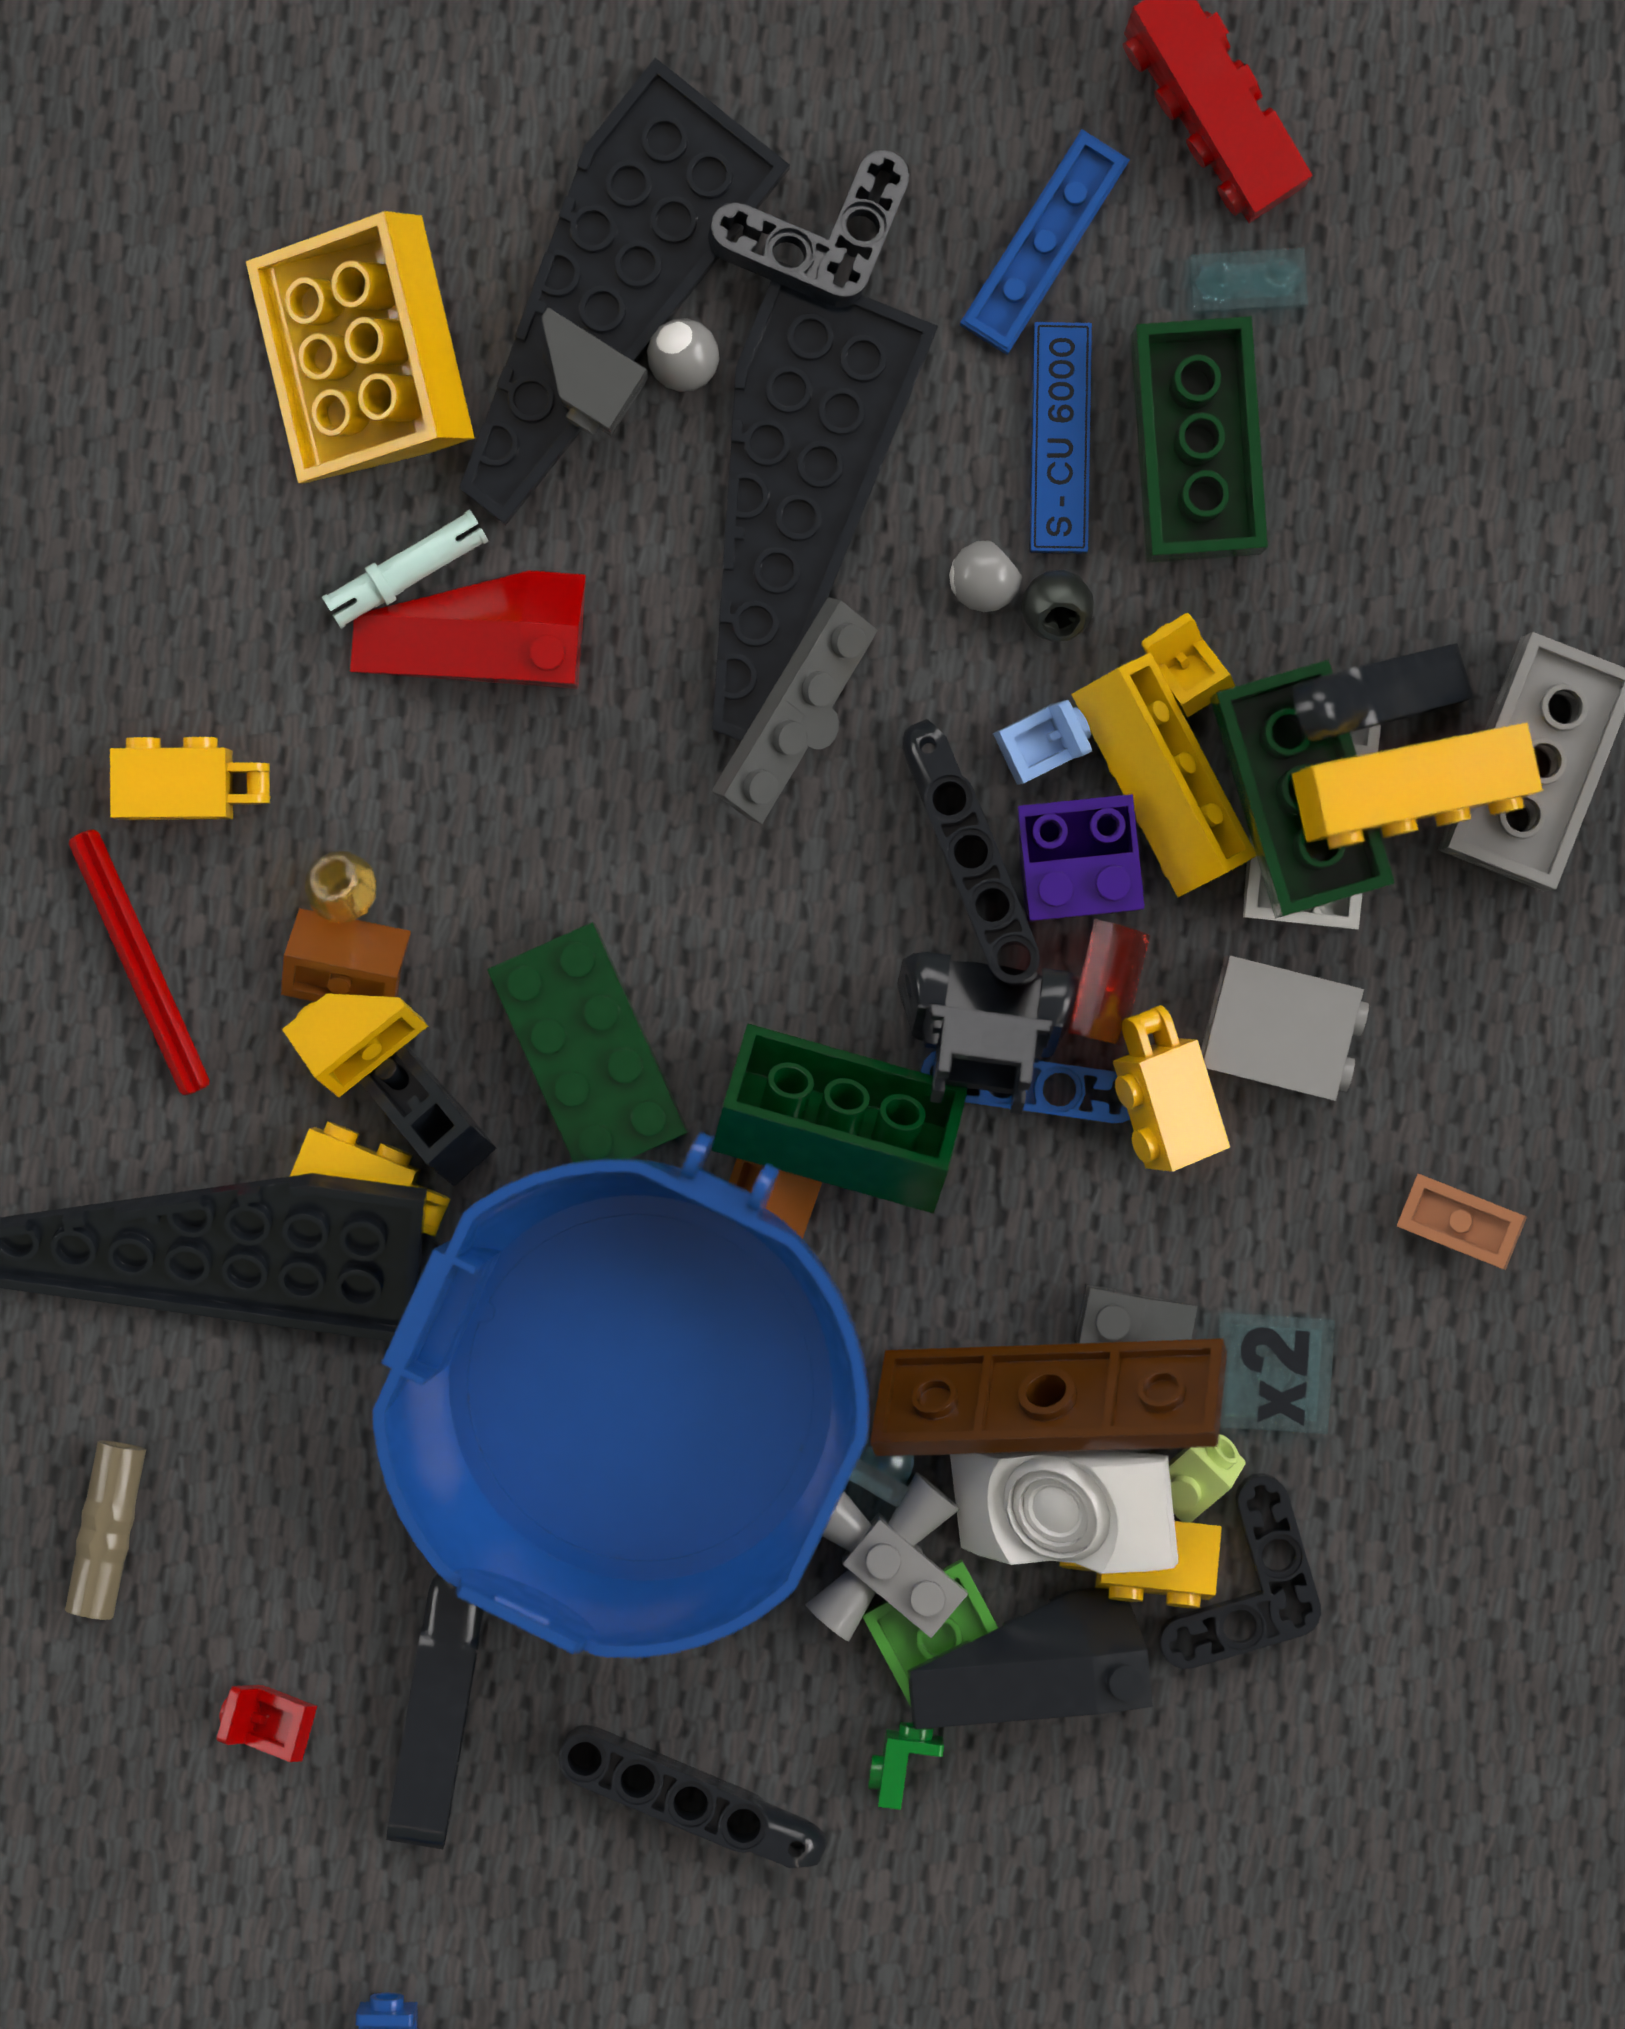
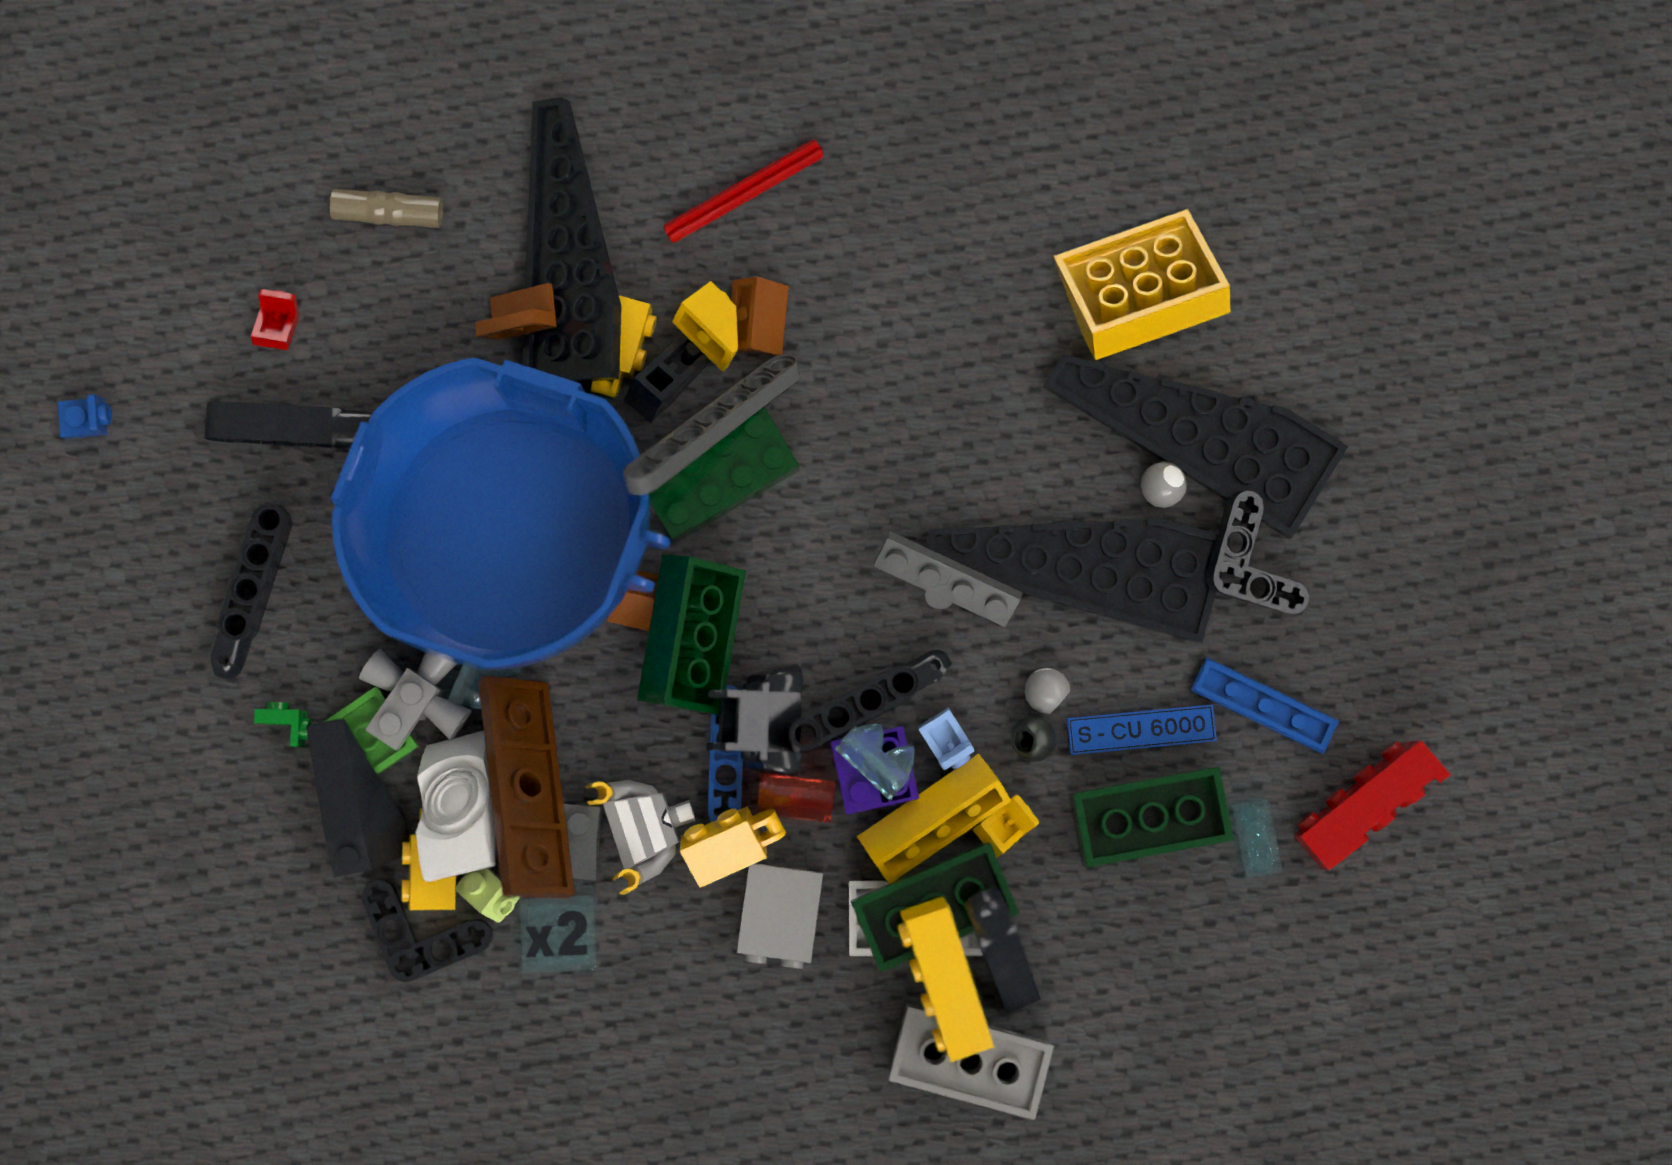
camera: 80 degrees right, 5 degrees down
(181, 781) = (858, 203): yellow brick -> none
(299, 1336) = (519, 313): none -> dark orange panel
(348, 901) = (814, 306): clear yellow piece -> none
(404, 569) = (1007, 326): light aqua pin -> none
(491, 631) = (974, 384): red wedge -> none
(534, 1055) = (710, 425): none -> dark grey beam
(591, 376) = (1142, 426): dark grey slope -> none
(1087, 841) = (884, 770): none -> clear light blue tile
(1126, 1227) = (641, 827): none -> torso
(1461, 1221) = (667, 1045): nougat plate -> none

